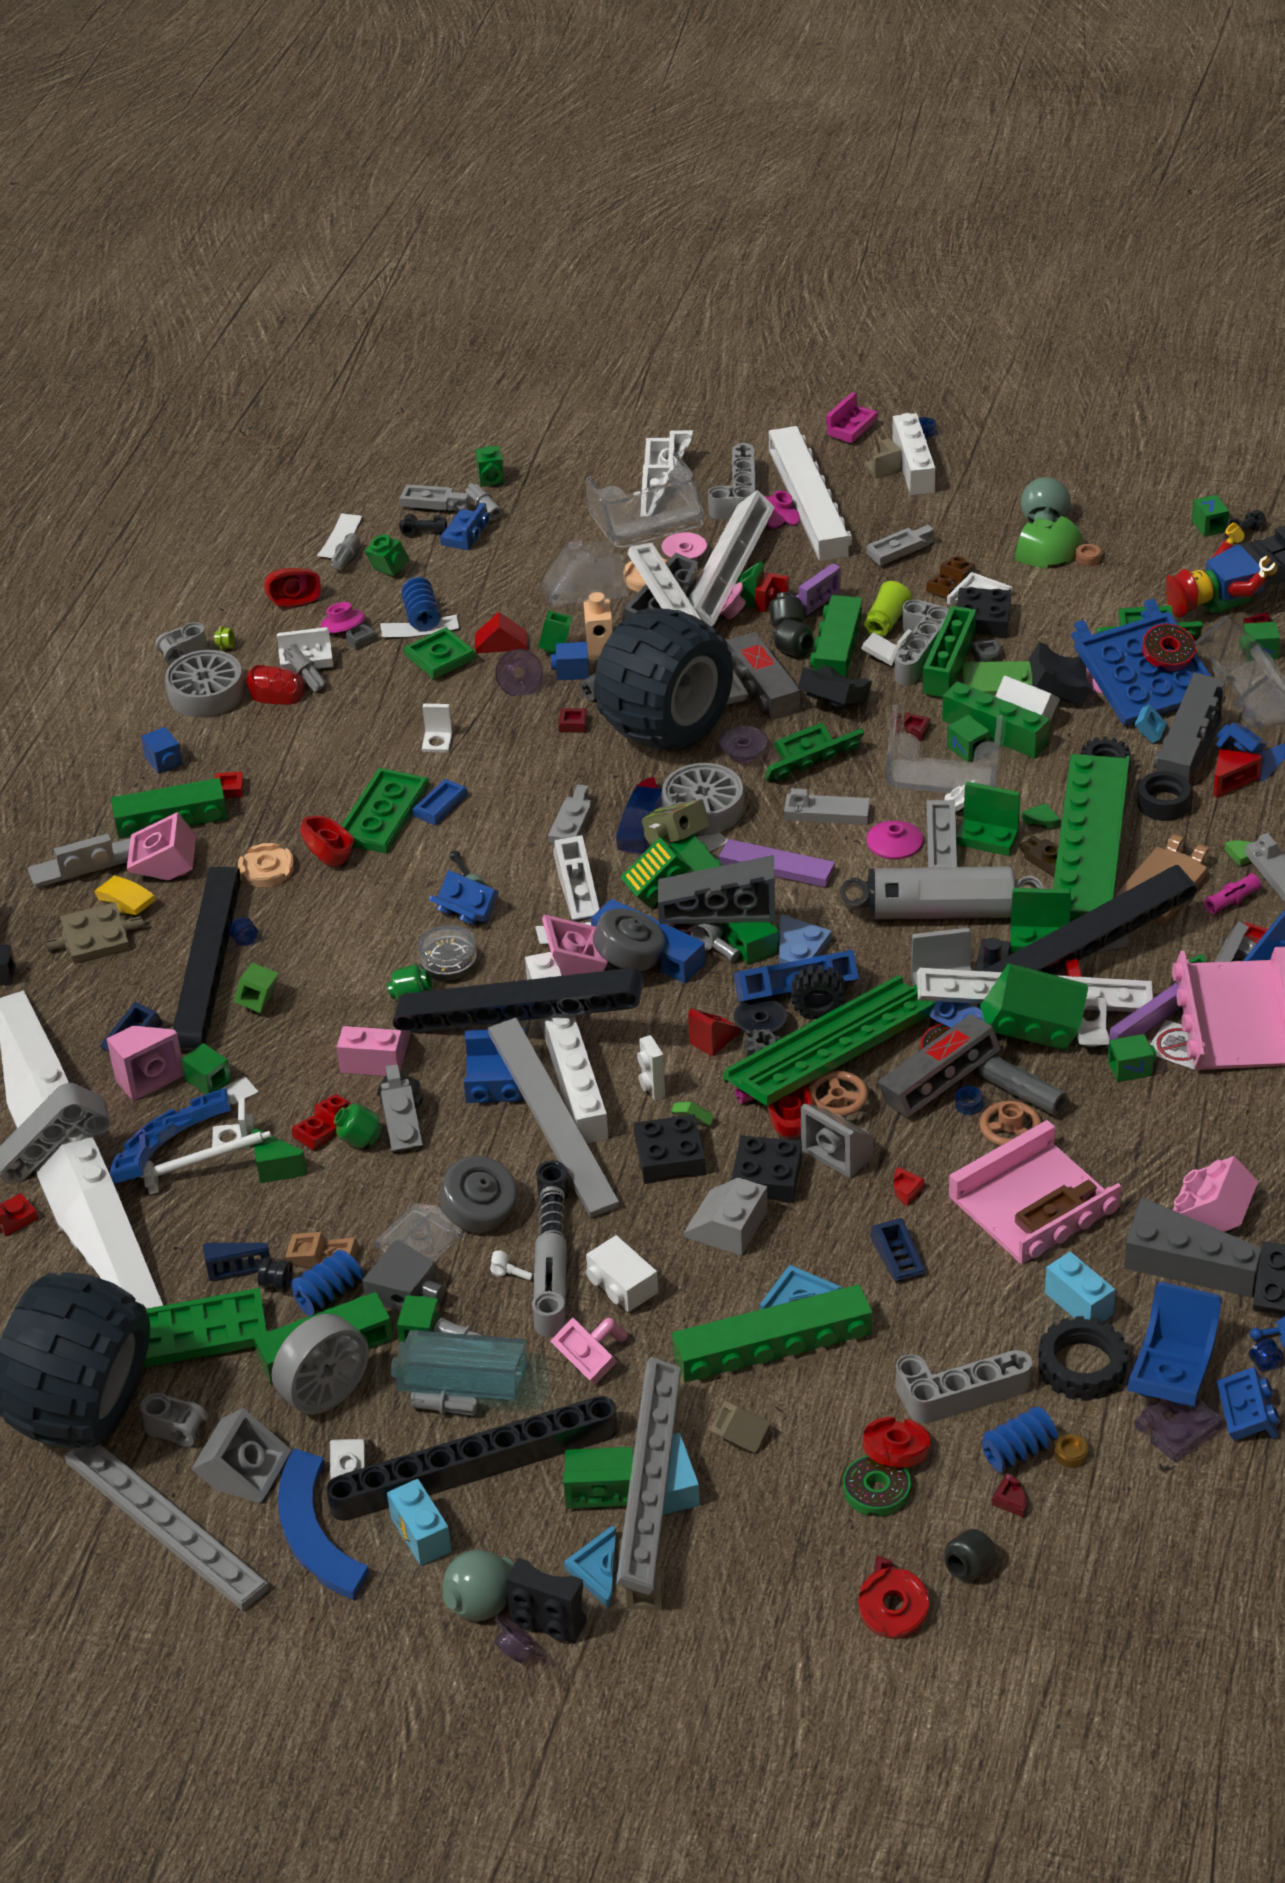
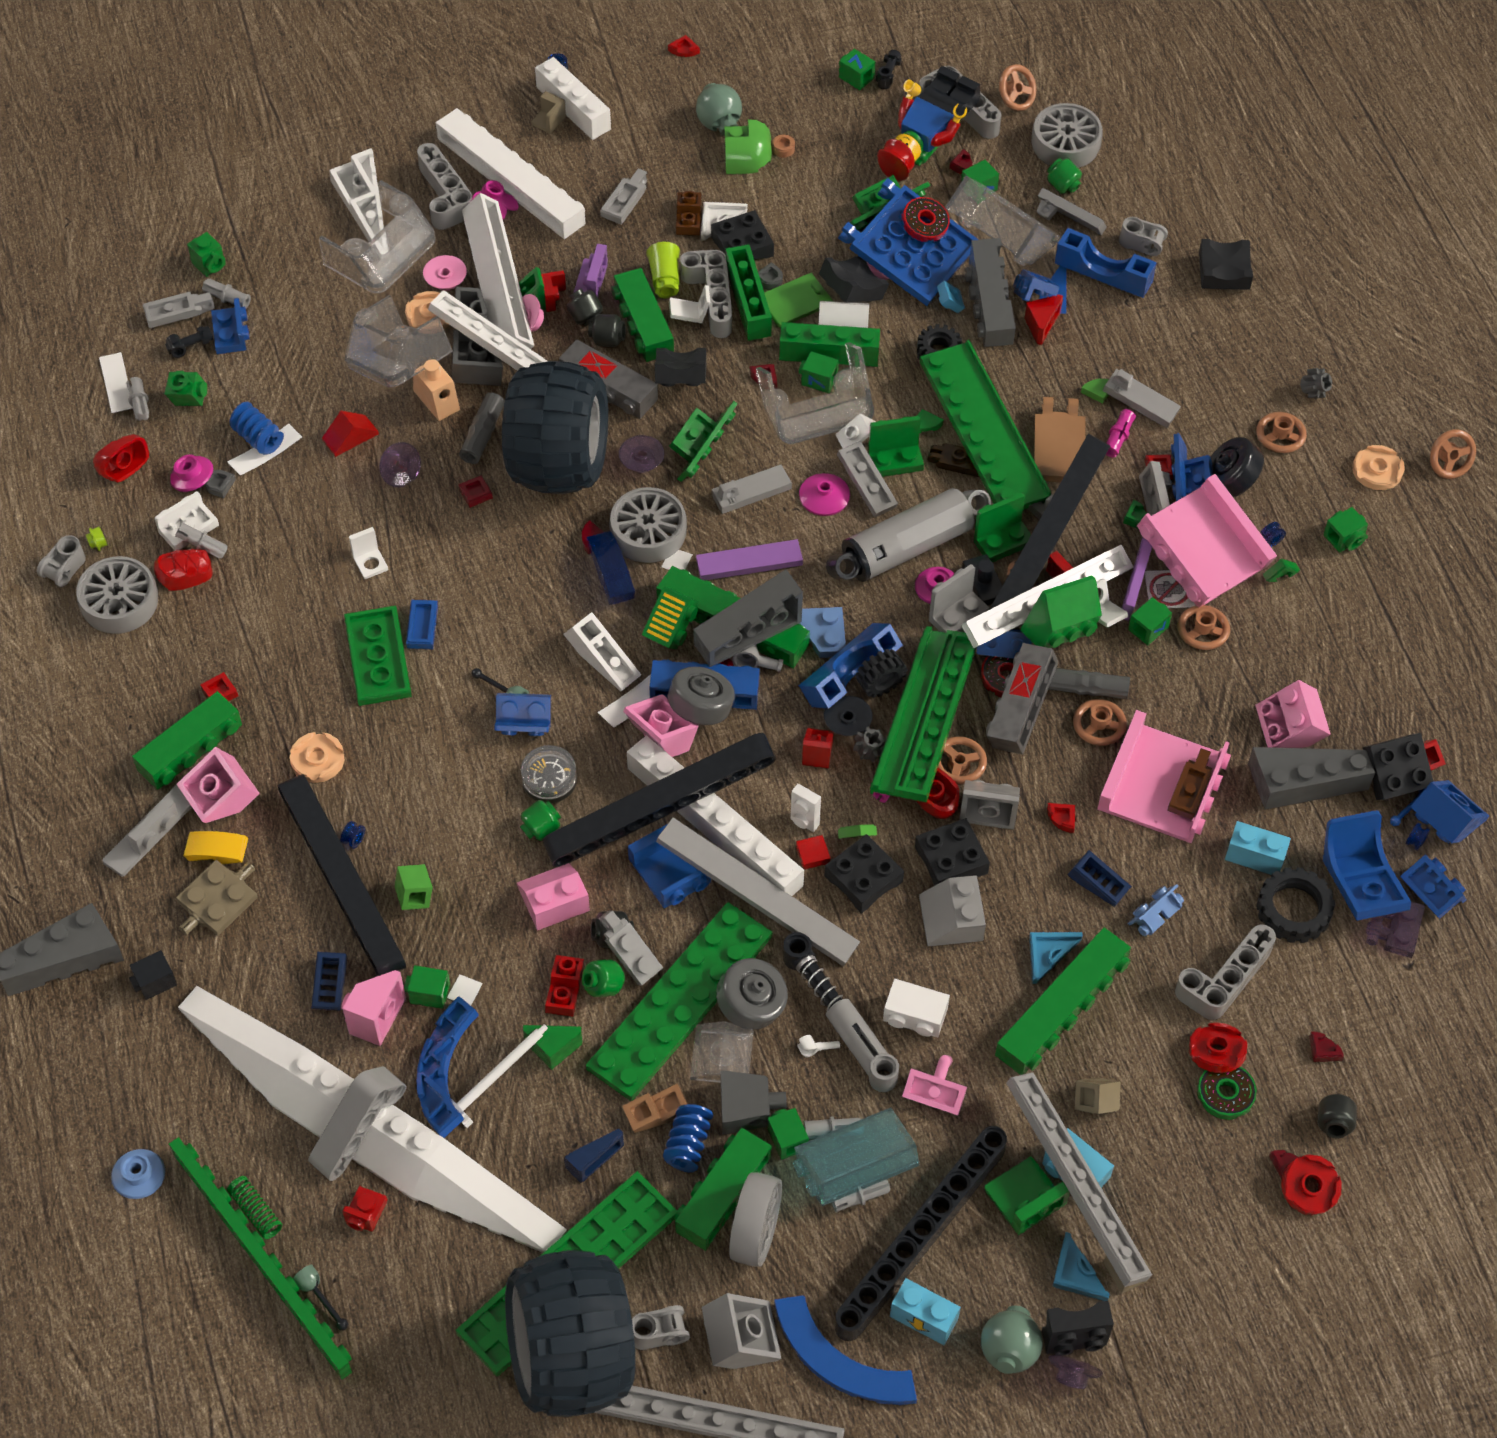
camera: 35 degrees left, 15 degrees up
(161, 750) = (132, 683): blue brick -> none
(243, 1129) = (503, 1026): white bracket -> none
(275, 1274) = (639, 1151): black wheel -> none
(327, 840) = (359, 709): red piece -> none
(346, 1455) = (825, 1285): white bracket -> none
(407, 1178) = (676, 1002): none -> green plate
(439, 653) = (308, 471): green plate -> none
(554, 631) = (401, 409): green brick -> none
(571, 661) = (433, 432): blue brick -> none
(572, 815) = (549, 591): light grey hinge -> none
(637, 1111) = (813, 852): none -> red tile
(665, 821) = (651, 562): olive torso -> none
(849, 420) = (492, 82): dark pink bracket -> none
(944, 1295) = (1148, 915): none -> medium blue hinge
(970, 1093) = (1058, 708): clear blue bush -> none
(1018, 1438) = (1304, 1000): blue piece -> none
(1056, 450) = (683, 47): none -> red tile
(1071, 1450) = (1338, 987): pearl gold tile -> none
(1164, 809) = (1012, 348): black tyre -> none
(1187, 1084) = (1204, 624): none -> nougat piece

